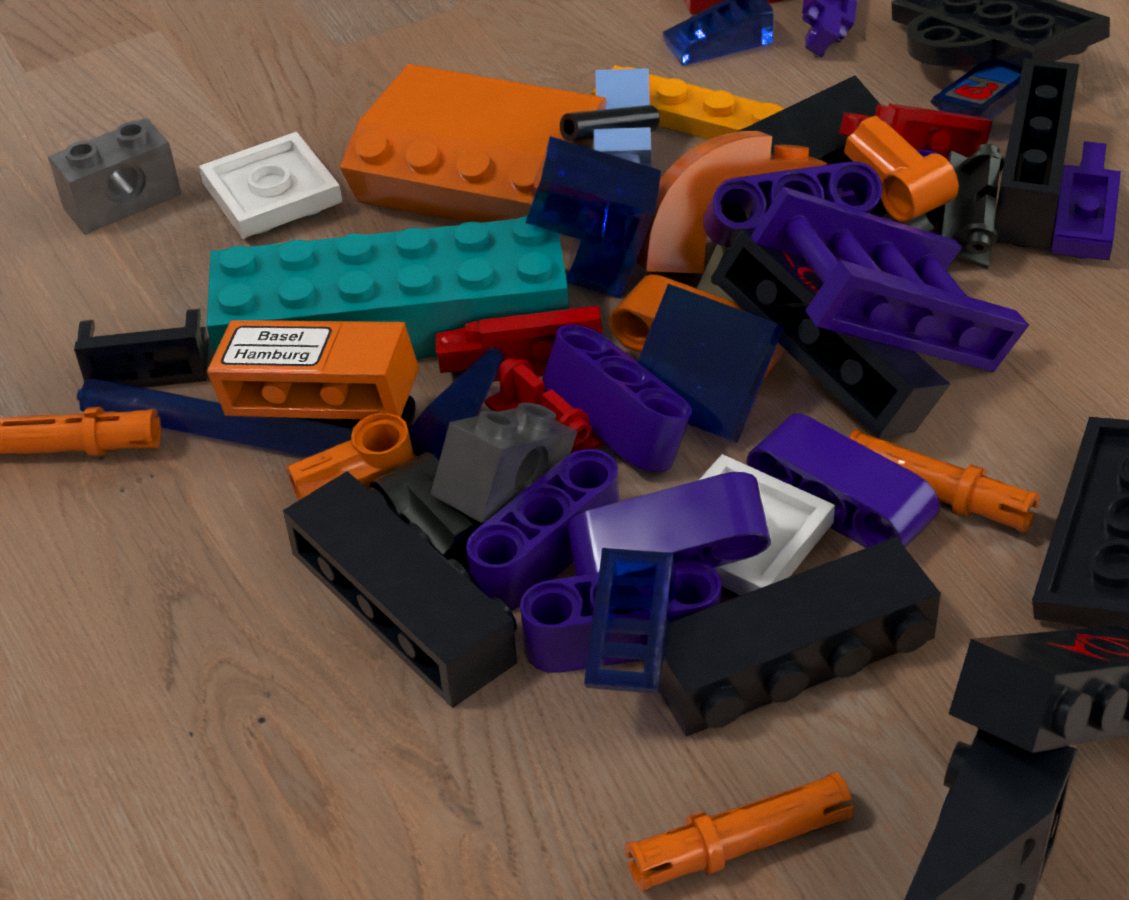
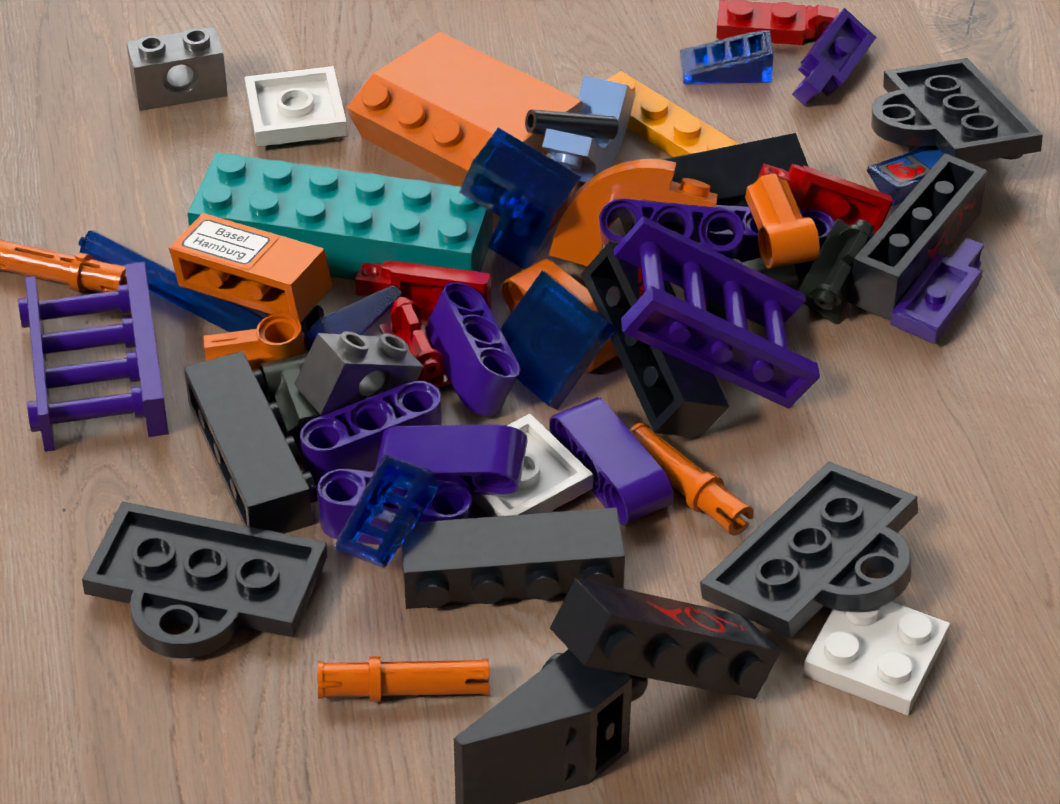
camera: 15 degrees right, 0 degrees up
(145, 356) = (137, 223): black hinge -> none
(197, 481) = (138, 366): none -> dark purple fence
(416, 772) = (202, 576): none -> black plate

